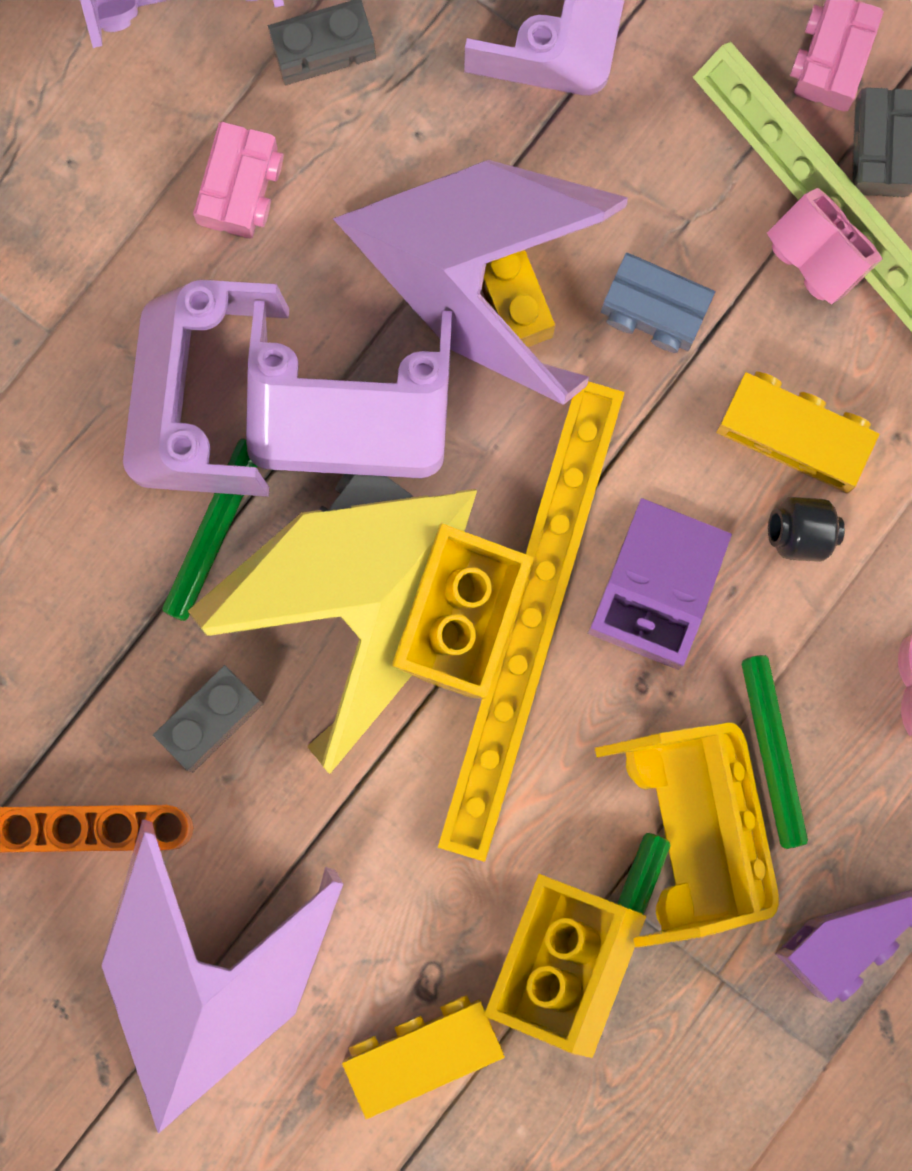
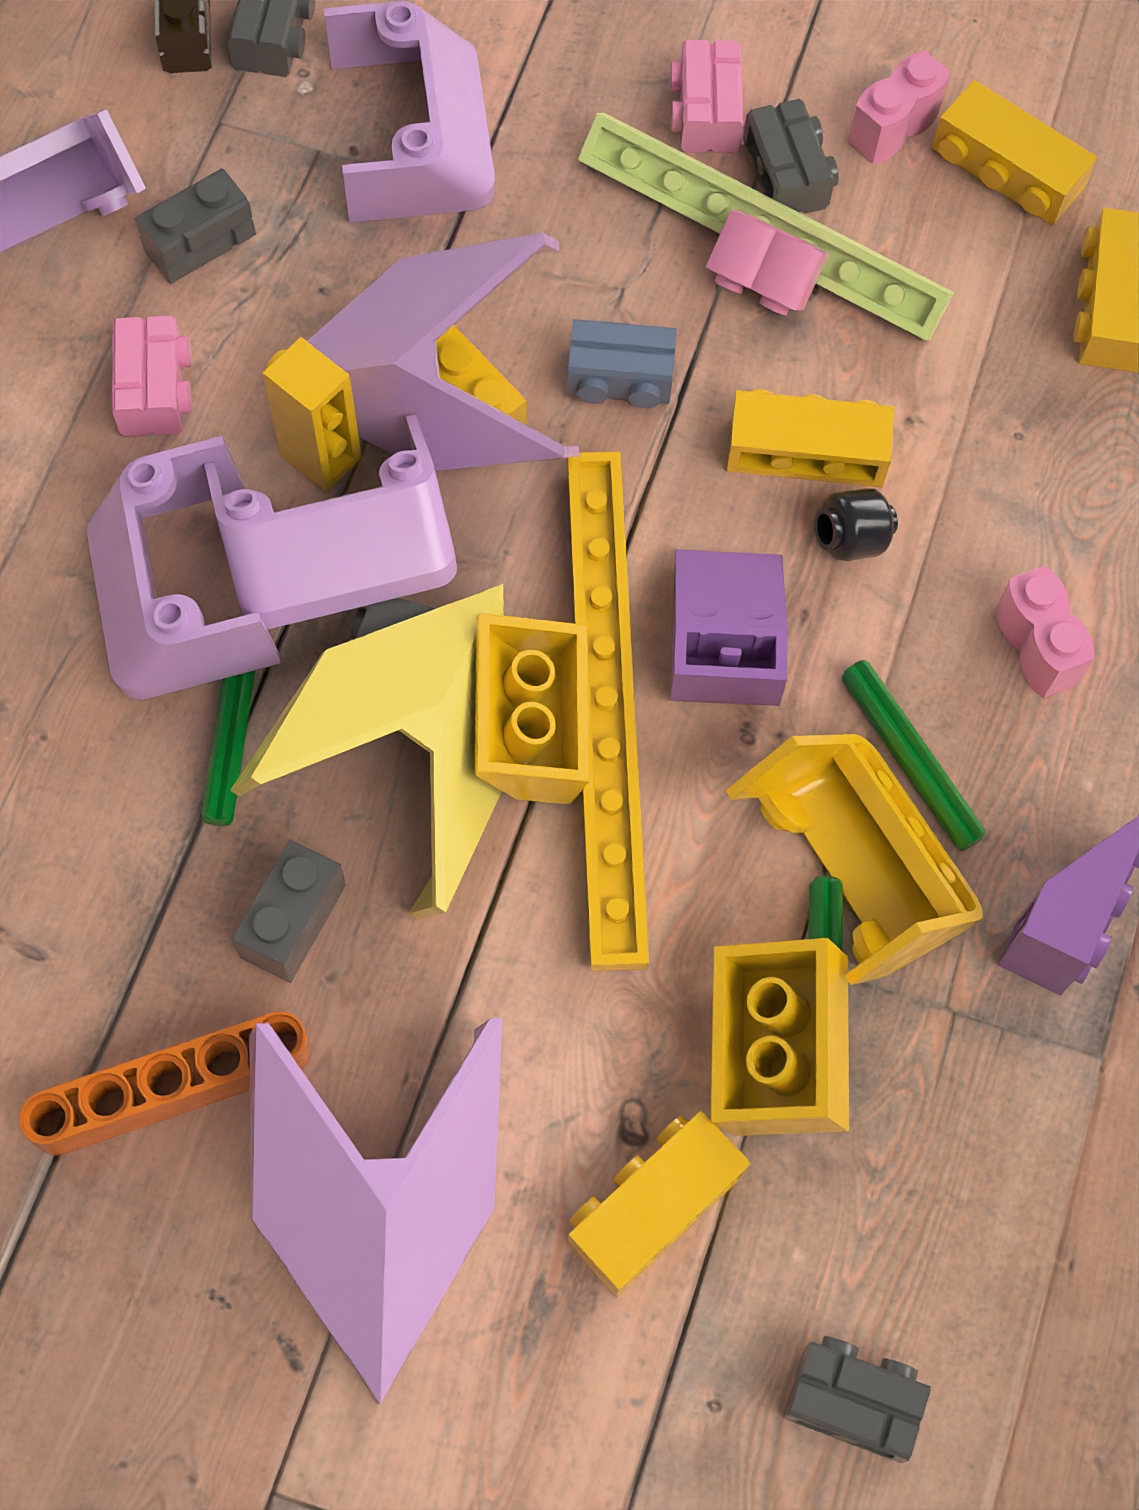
camera: 20 degrees left, 15 degrees down
(362, 281) = (312, 413): none -> yellow brick

